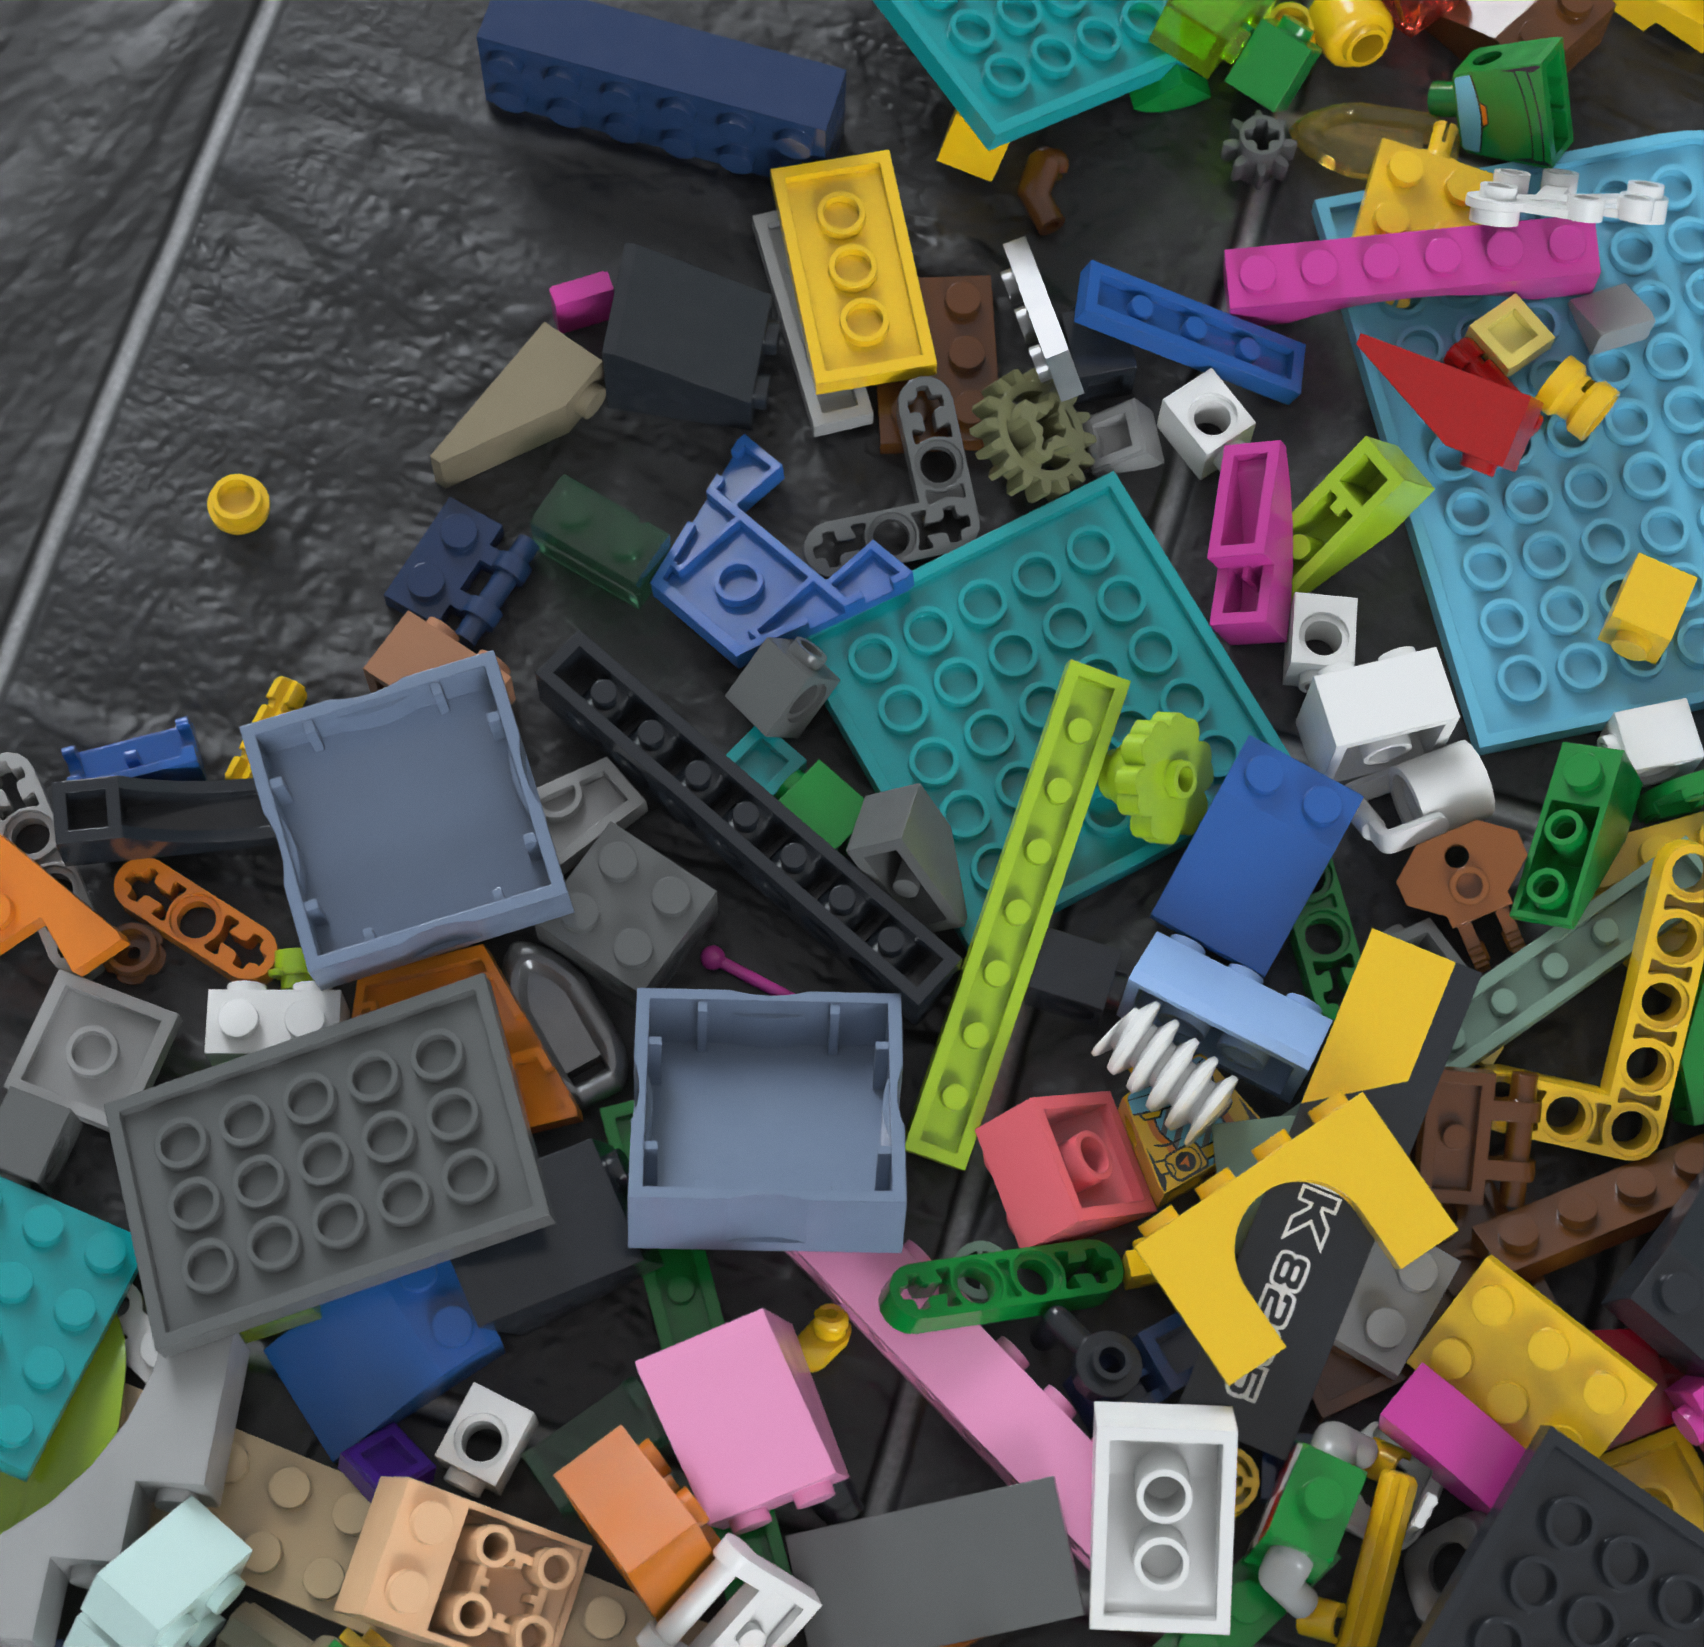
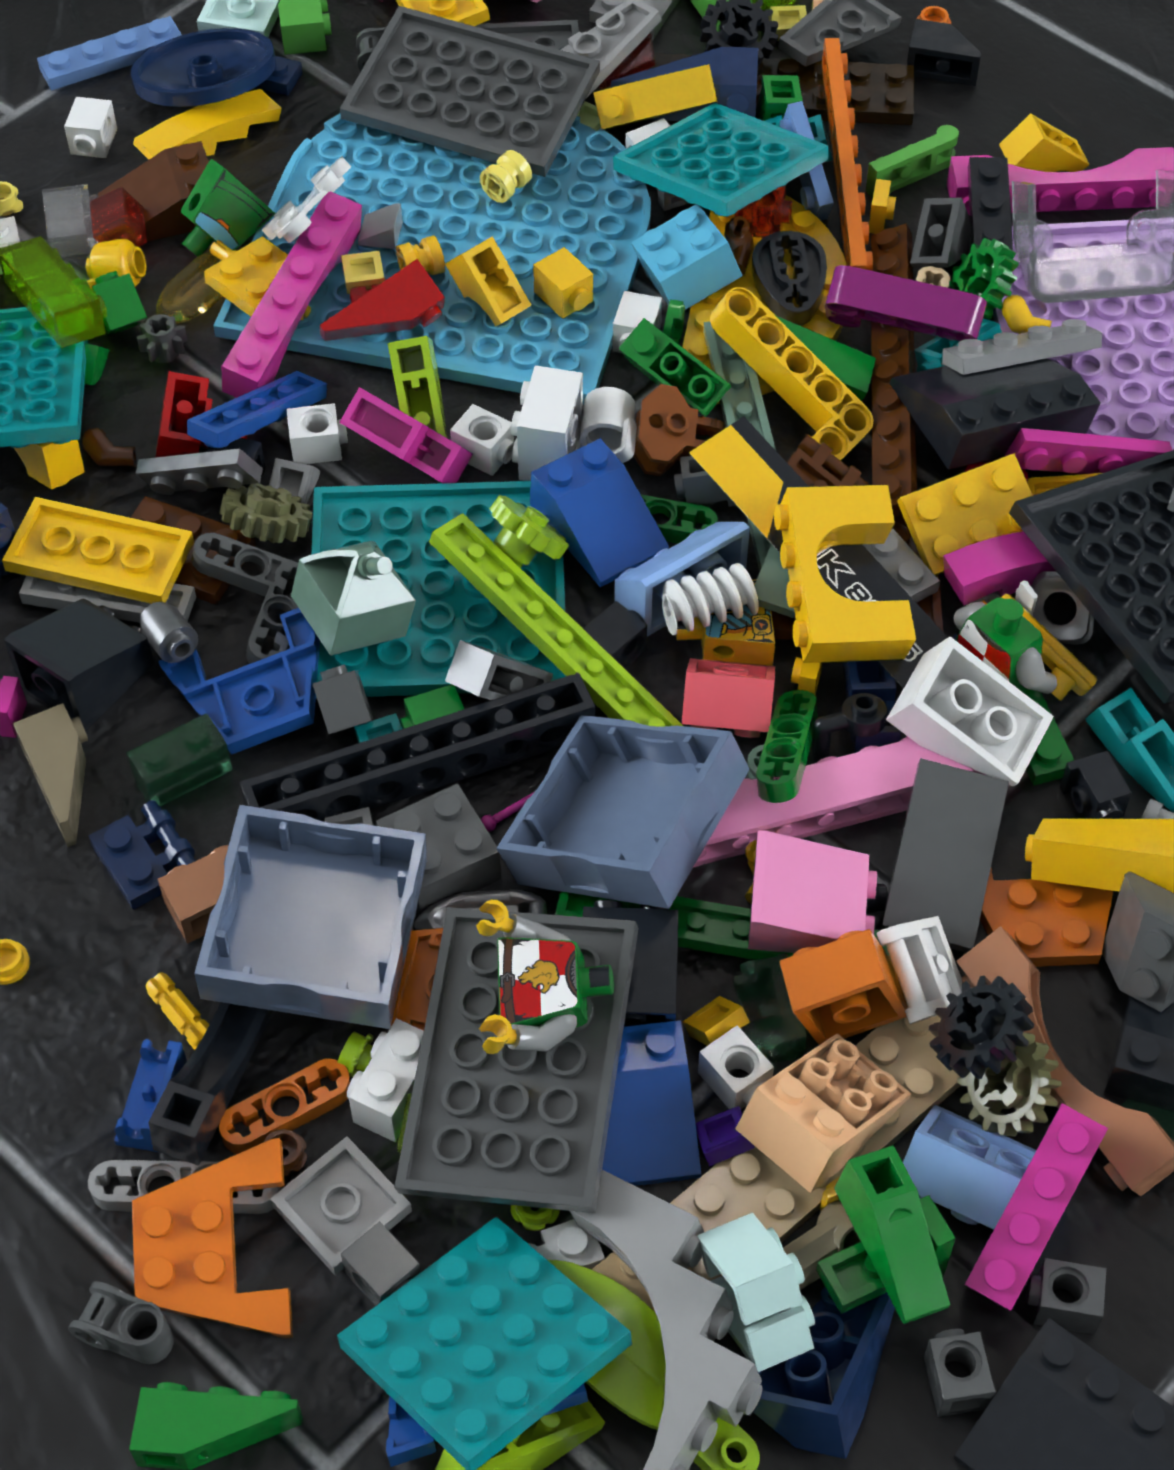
camera: 60 degrees left, 15 degrees down
(396, 1141) = (539, 983): none -> torso
(545, 1382) = (715, 1020): none -> yellow plate
(774, 422) = (168, 632): none -> flat silver brick
(928, 615) = (352, 597): none -> sand green piece
(1137, 242) = (183, 399): none -> red brick
(1584, 510) = (489, 281): none -> yellow arch

